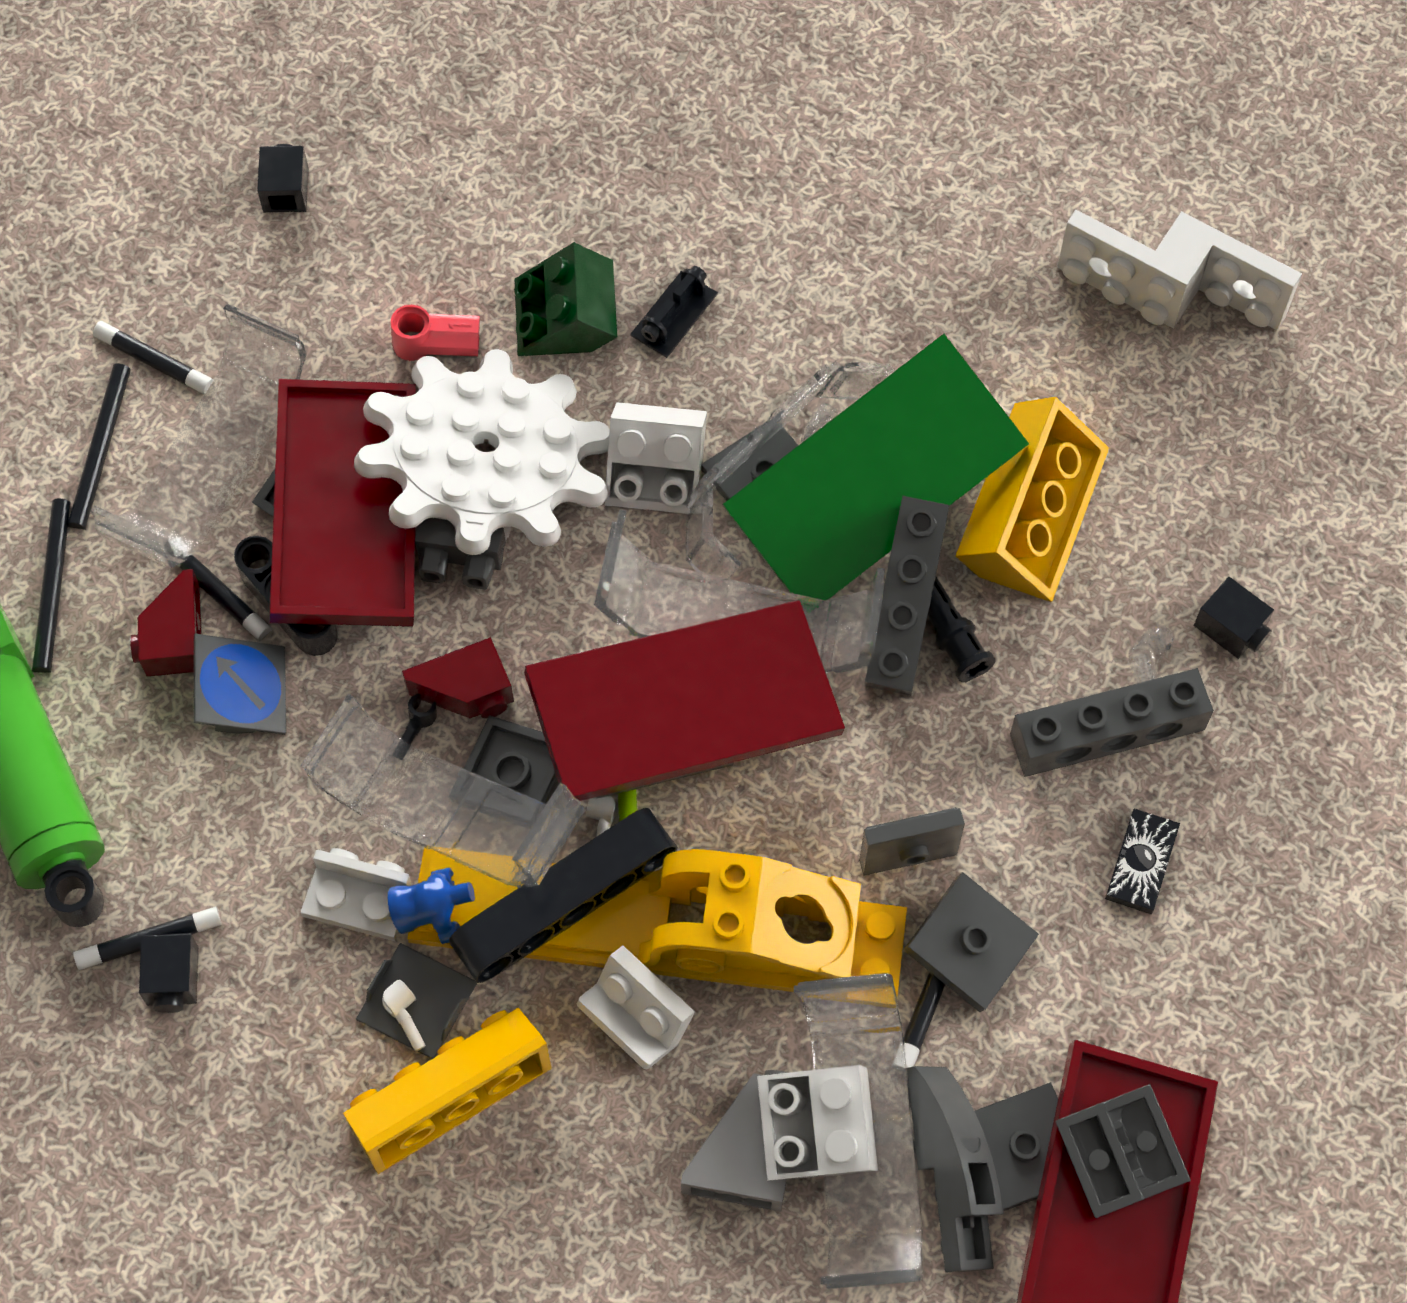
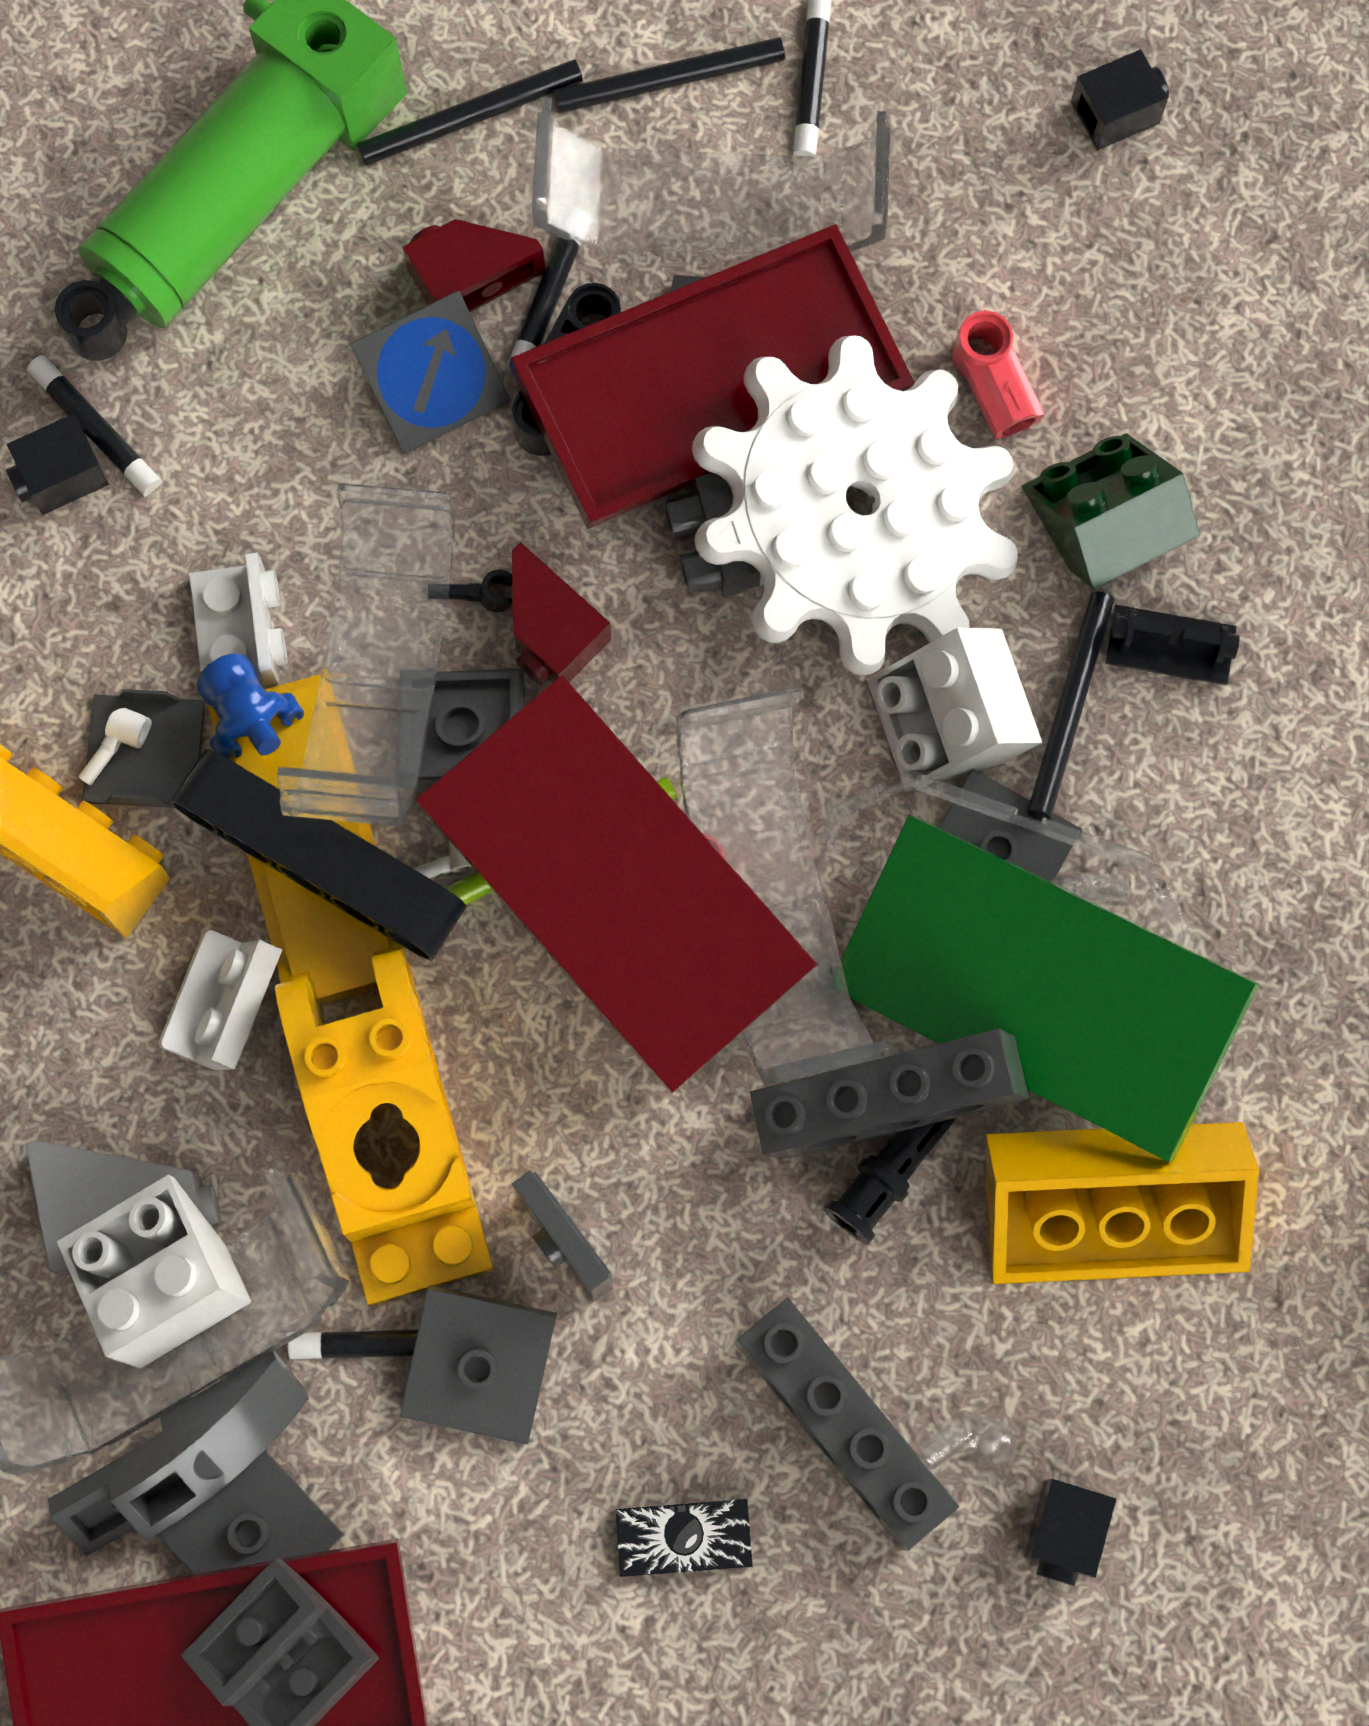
camera: 65 degrees right, 10 degrees up
(684, 385) = (1070, 706): none -> black bar

